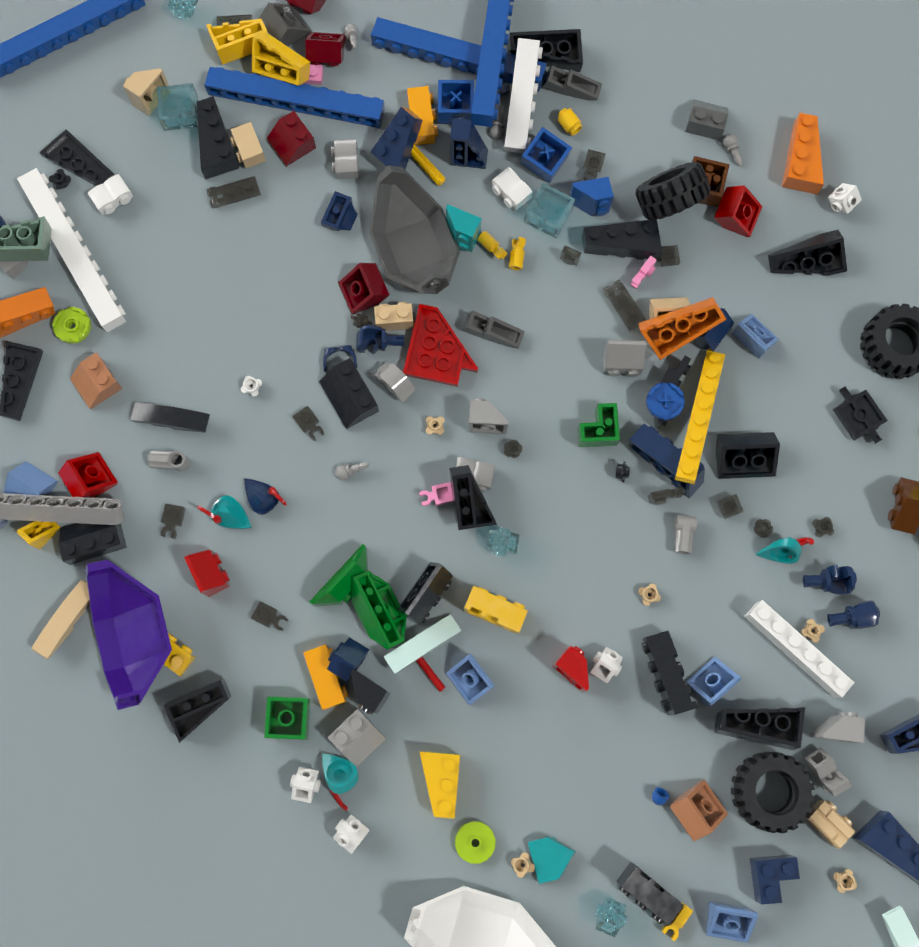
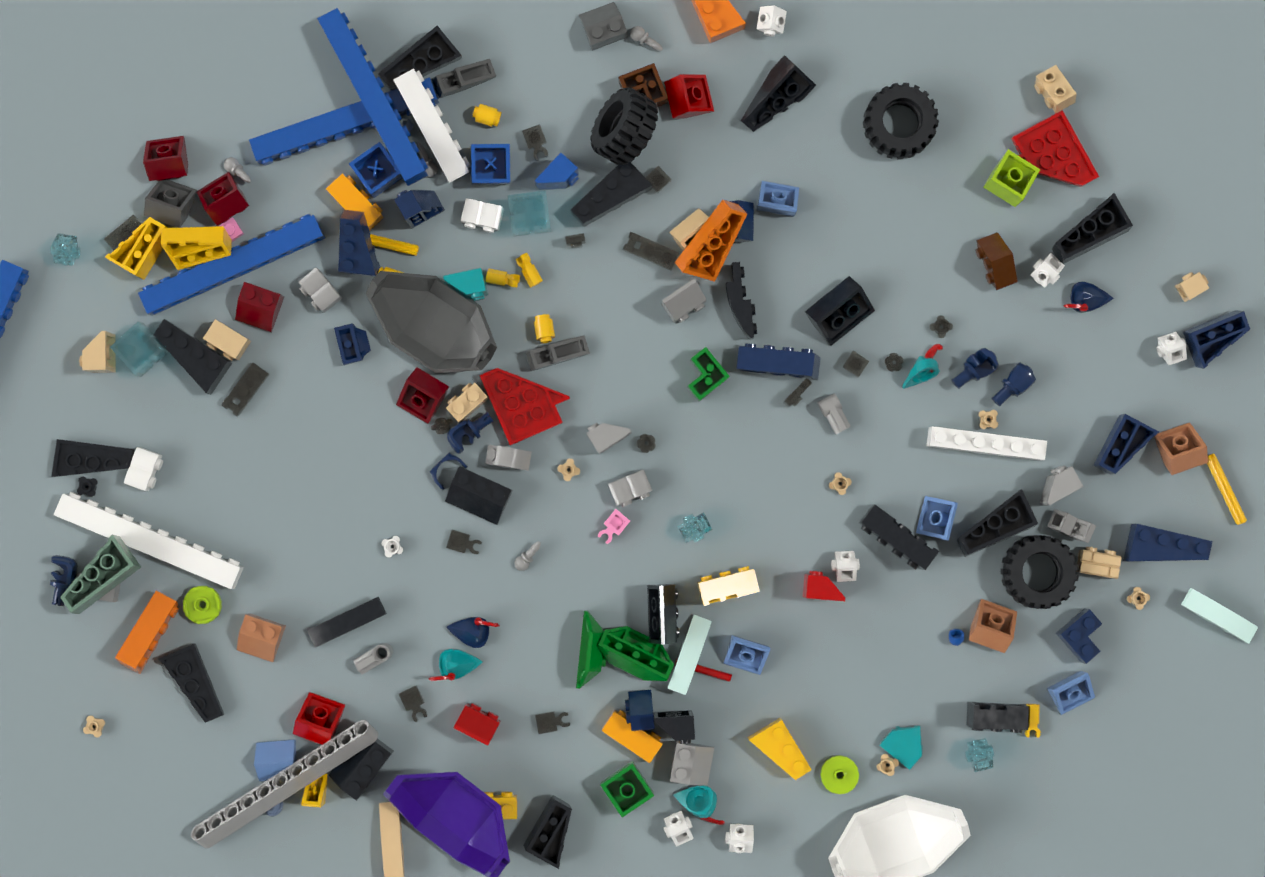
camera: 35 degrees left, 10 degrees up
(469, 502) = (645, 515): black wedge -> none
(496, 304) = (544, 328): none -> yellow brick
(622, 471) = (749, 398): black plate -> none
(646, 270) = (648, 206): bright pink plate -> none
(665, 401) = (744, 315): blue tile -> none
(700, 417) = (781, 308): yellow plate -> none
(860, 415) = (909, 208): black plate -> none

